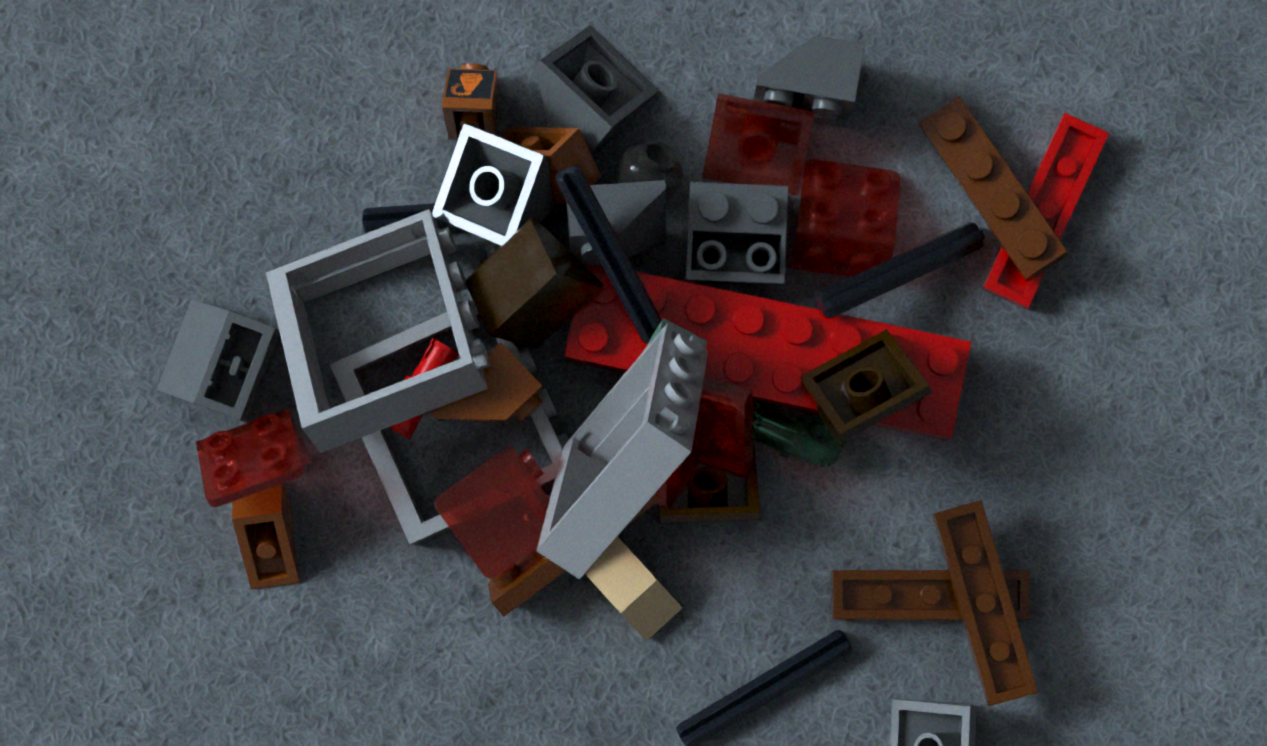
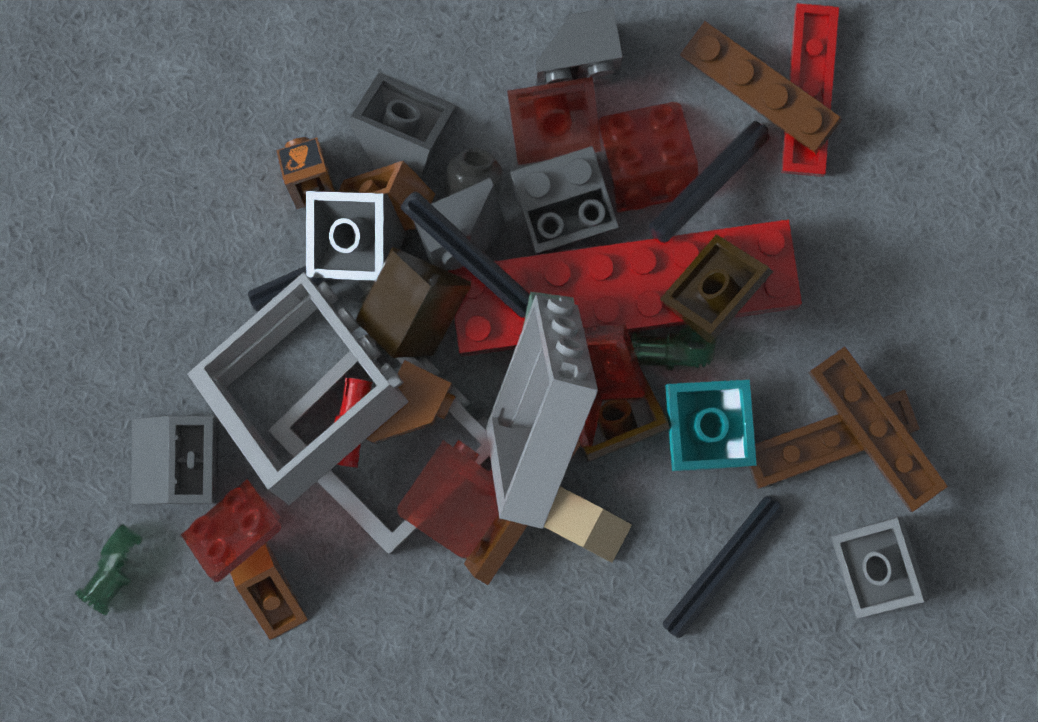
camera: 20 degrees left, 0 degrees up
(103, 459) = (108, 577): none -> clear green connector
(805, 532) = (710, 425): none -> teal slope

